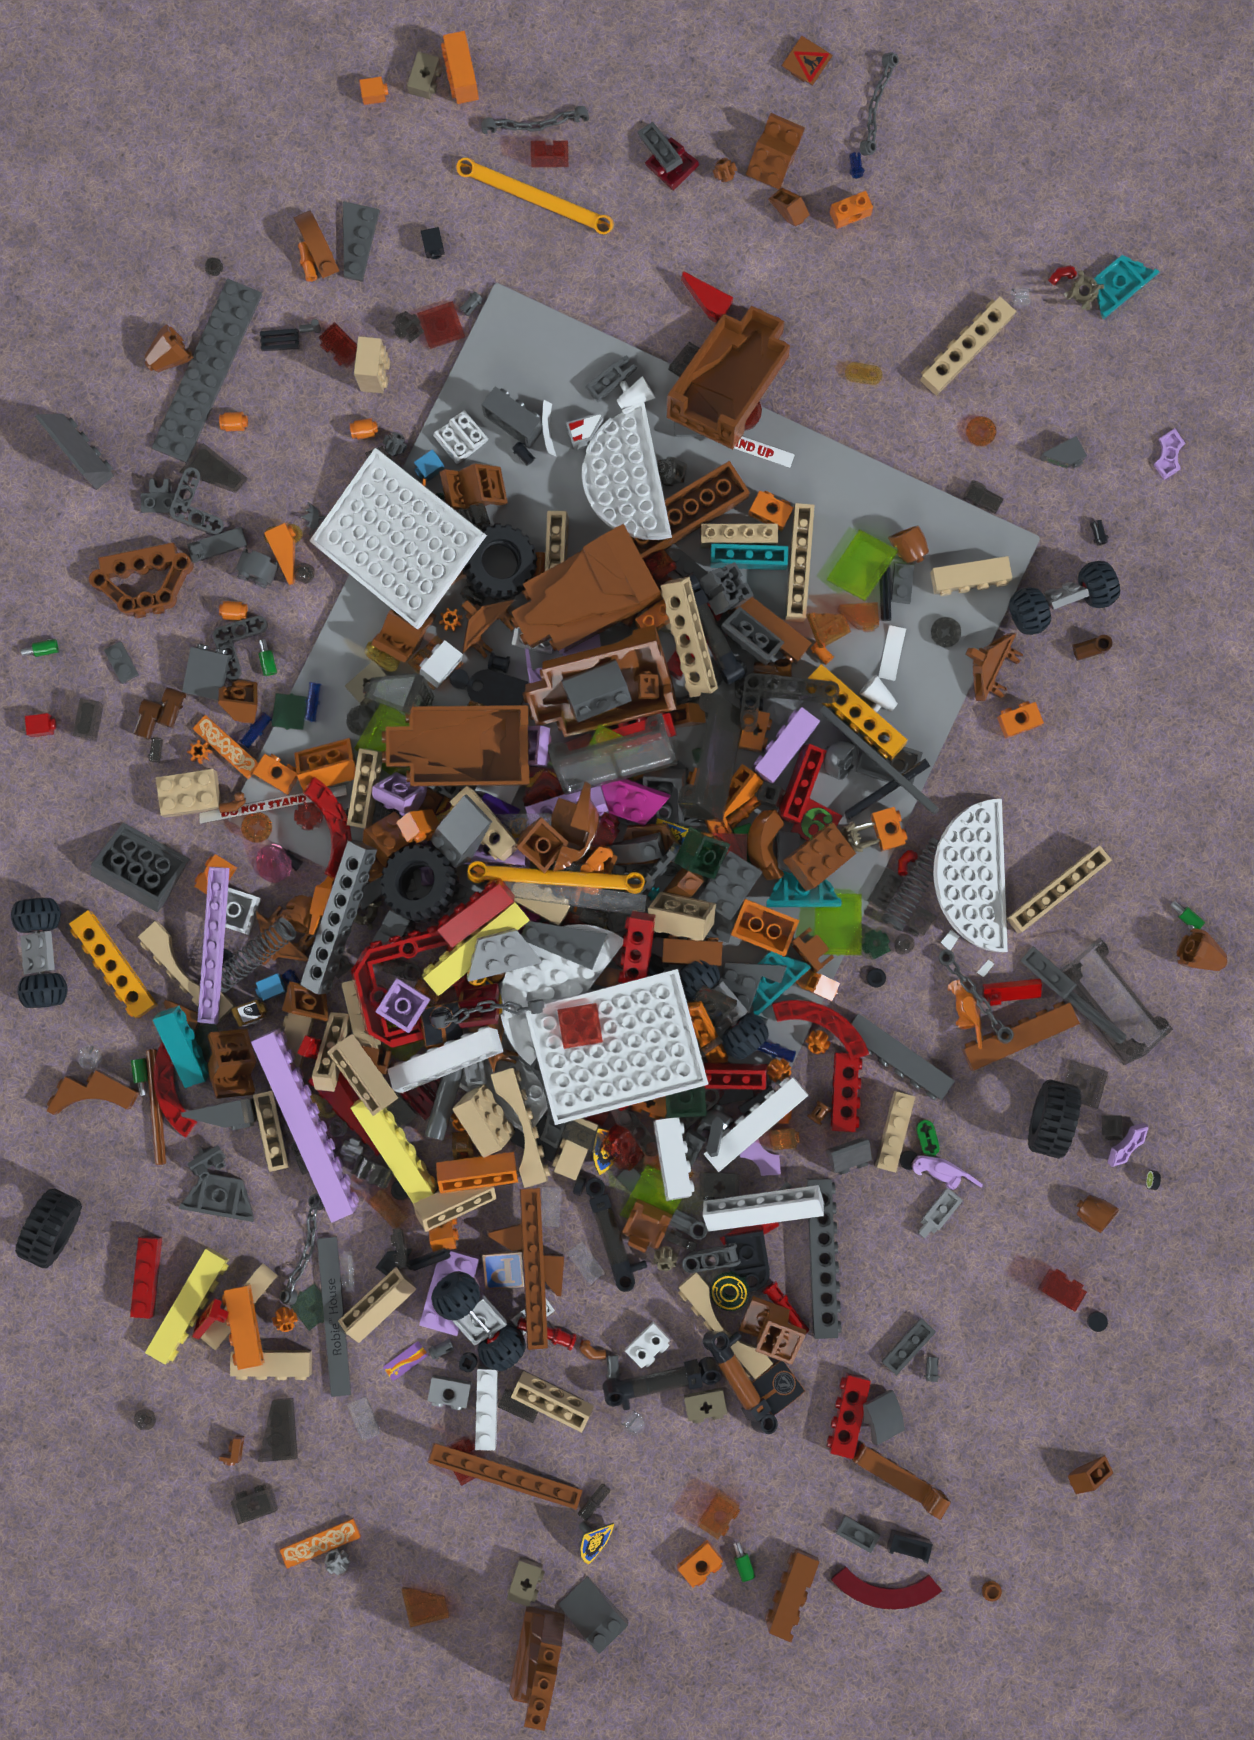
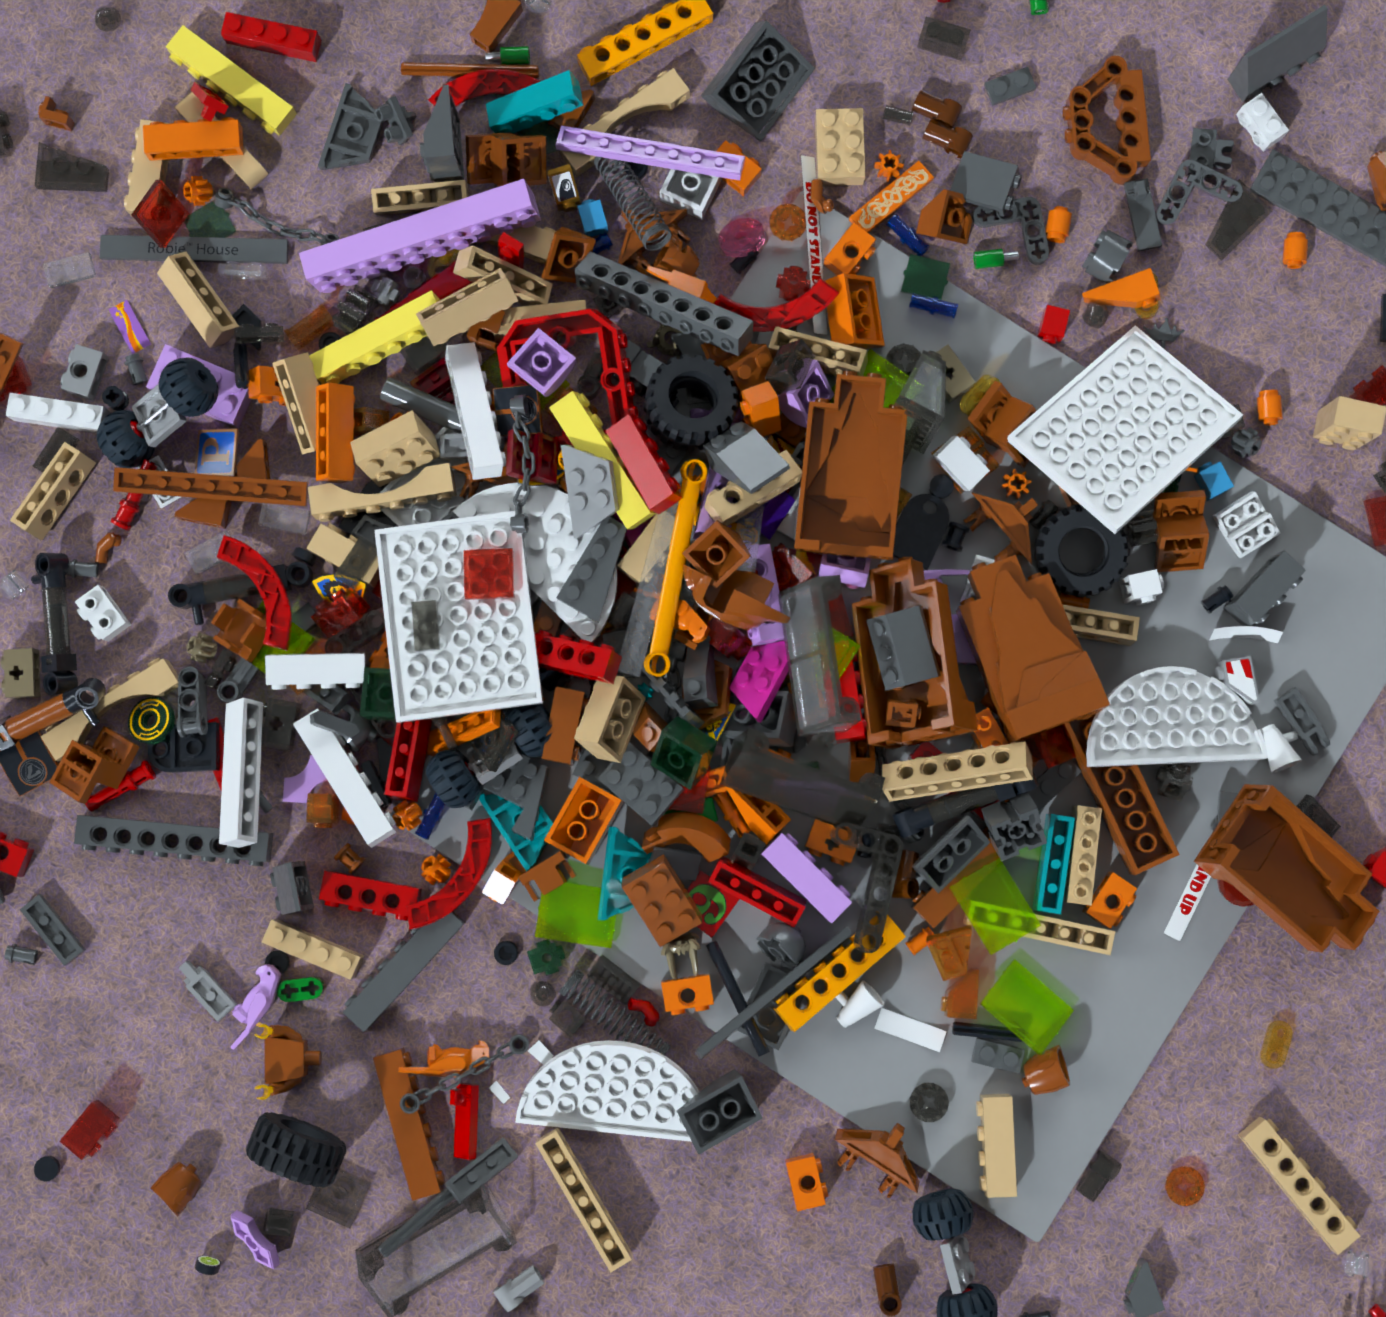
camera: 100 degrees right, 0 degrees up
(131, 458) = (1262, 122): none -> white brick
(309, 1346) = (160, 213): none -> clear red plate
(316, 605) = (1053, 324): none -> red brick
(381, 807) = (790, 366): none -> clear smoke brick
(523, 511) = (1141, 587): none -> white brick
(607, 1209) = (269, 586): none -> red tile
(628, 1070) = (425, 625): none -> clear smoke plate
(789, 597) = (995, 906): none -> clear neon green piece
(976, 791) = (719, 1111): none -> dark grey slope
(984, 1141) = (285, 1059): none -> dark orange torso
(1137, 935) = (515, 1290): none -> light grey piece

